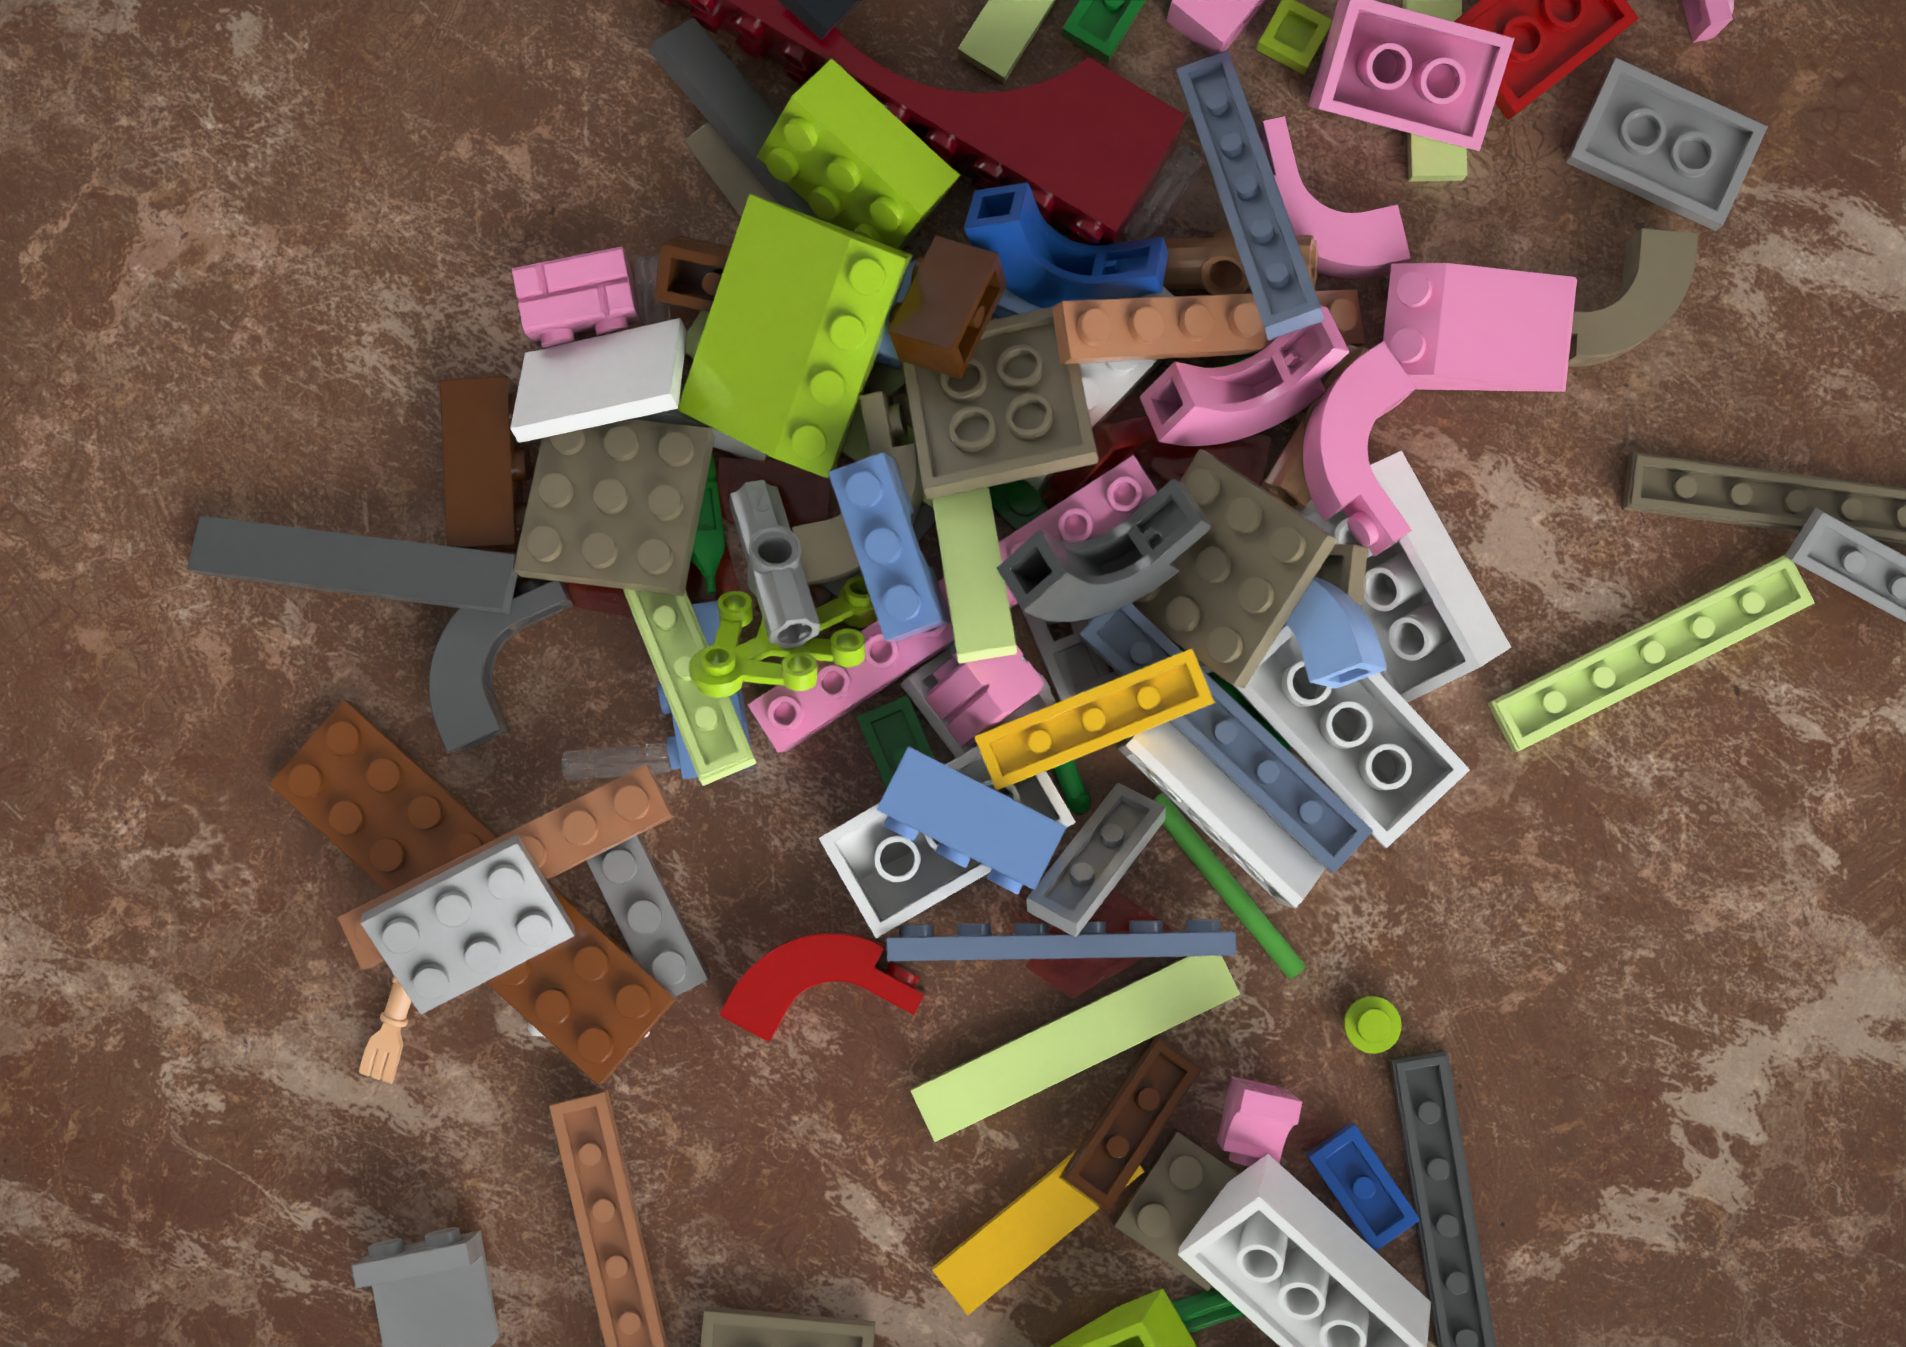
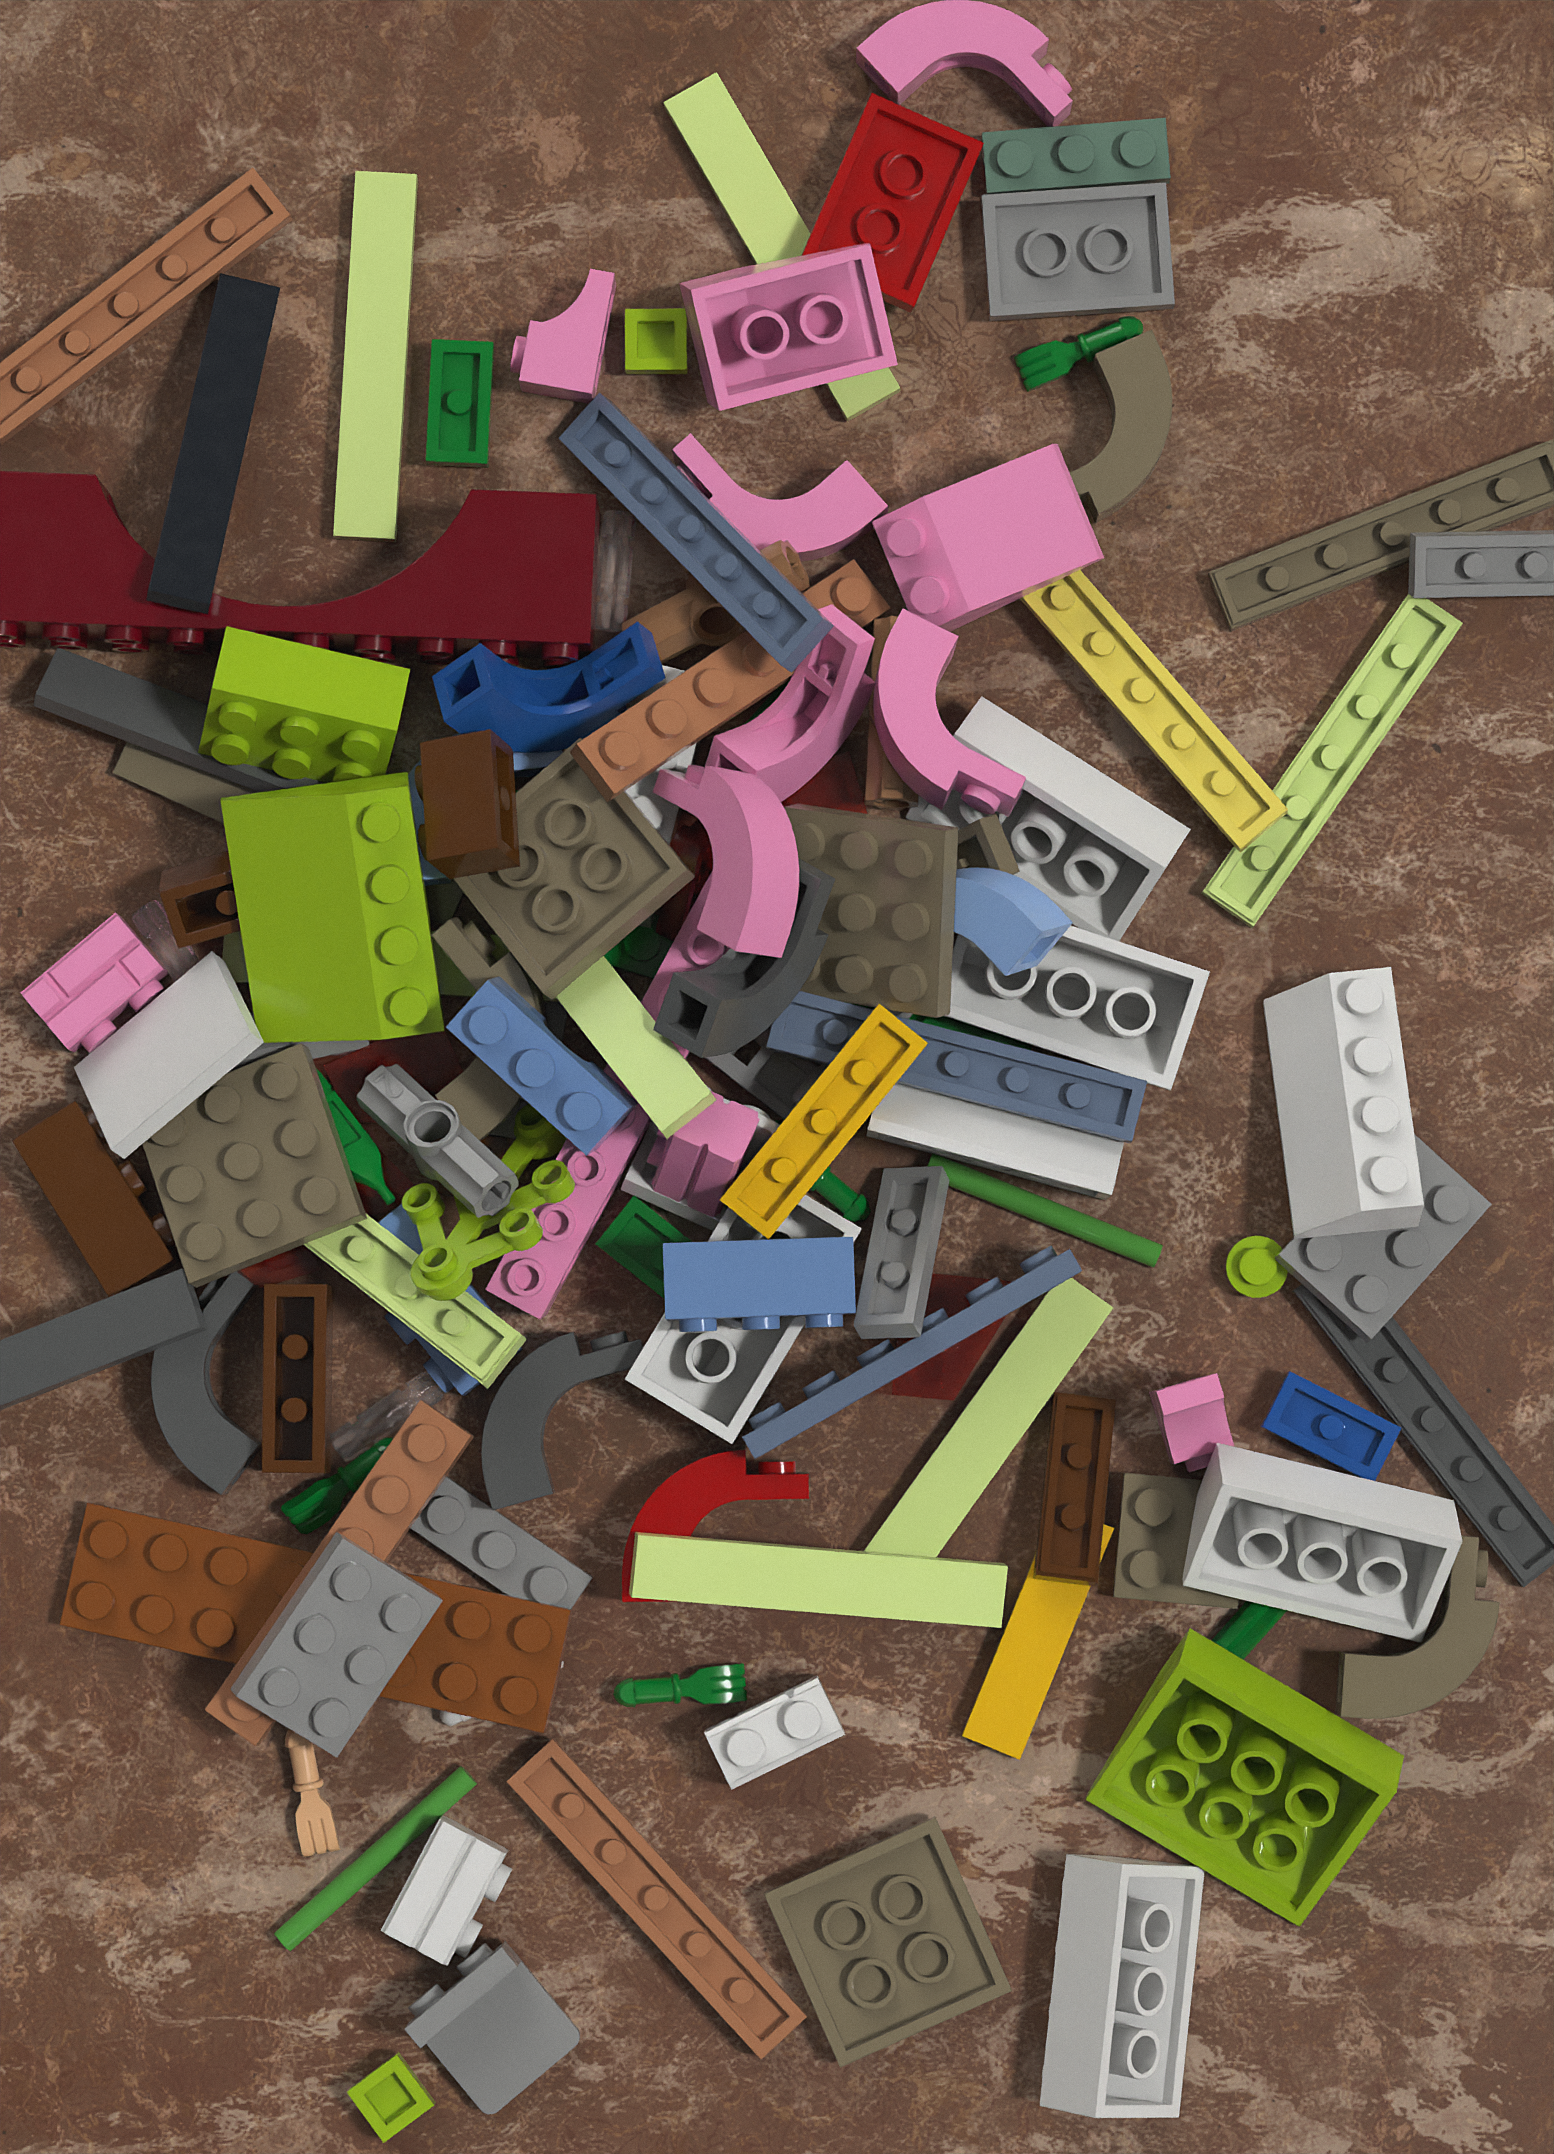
camera: 25 degrees left, 0 degrees up
(319, 1306) = (391, 2097): none -> lime plate
(414, 1107) = (375, 1858): none -> bright green bar
(453, 1166) = (446, 1891): none -> white brick
(532, 799) = (325, 1496): none -> green piece
(559, 694) = (297, 1378): none -> reddish brown brick
(711, 827) = (516, 1421): none -> dark grey arch
(750, 1114) = (705, 1685): none -> green piece
(783, 1186) = (774, 1732): none -> white brick
(884, 1084) = (818, 1580): none -> yellowish green tile
(1156, 471) = (753, 856): none -> bright pink arch
(1489, 1053) = (1375, 1272): none -> light grey plate
(1518, 937) = (1344, 1105): none -> white slope
(1536, 536) = (1157, 708): none -> light yellow plate
(1602, 220) = (1056, 359): none -> green piece
(1705, 68) = (1076, 156): none -> sand green plate

